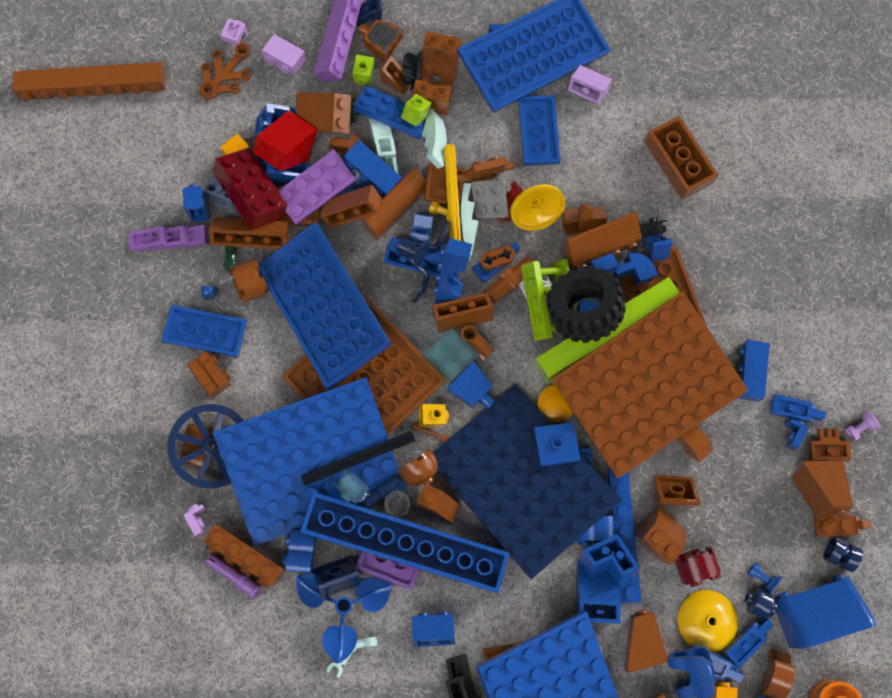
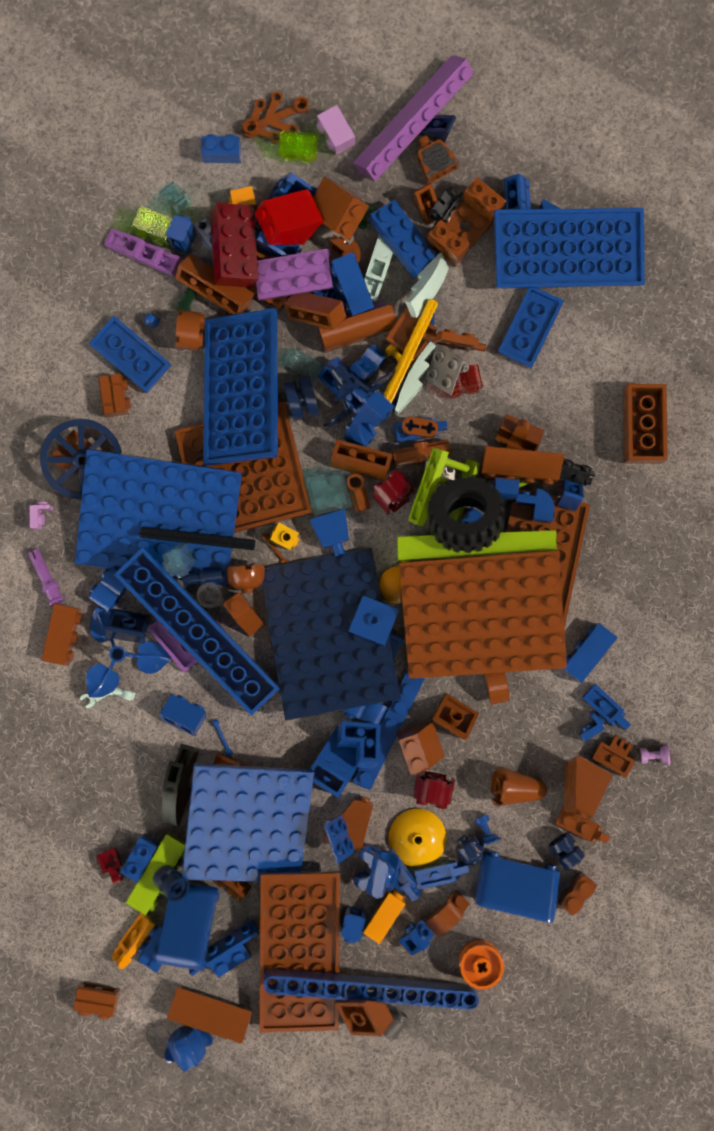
camera: 35 degrees right, 10 degrees up
(89, 81) = (148, 63): dark orange brick -> none
(166, 211) = (151, 225): none -> clear neon green brick
(174, 176) = (176, 198): none -> clear light blue slope
(192, 118) = (221, 149): none -> blue brick
(233, 31) = (302, 82): lavender bracket -> none
(244, 555) = (62, 566): dark orange brick -> none
(259, 83) = (298, 146): none -> clear neon green brick
(278, 620) = (62, 634): none -> dark orange brick
(363, 70) = (401, 182): lime brick -> none
(365, 259) = (303, 364): none -> clear light blue slope
(380, 286) = (301, 398): none -> dark blue wheel
(416, 110) = (421, 252): lime brick -> none
(463, 28) = (517, 192): none -> blue brick
(493, 641) = (229, 752): none -> blue hinge
(507, 324) = (393, 492): none -> dark red brick
(537, 207) = (482, 400): yellow dish -> none
(594, 85) = (603, 308): lavender brick -> none
(651, 666) = (339, 839): none -> blue hinge
(764, 524) = (515, 788): none -> dark orange cone
(876, 584) = (573, 897): none -> dark orange brick

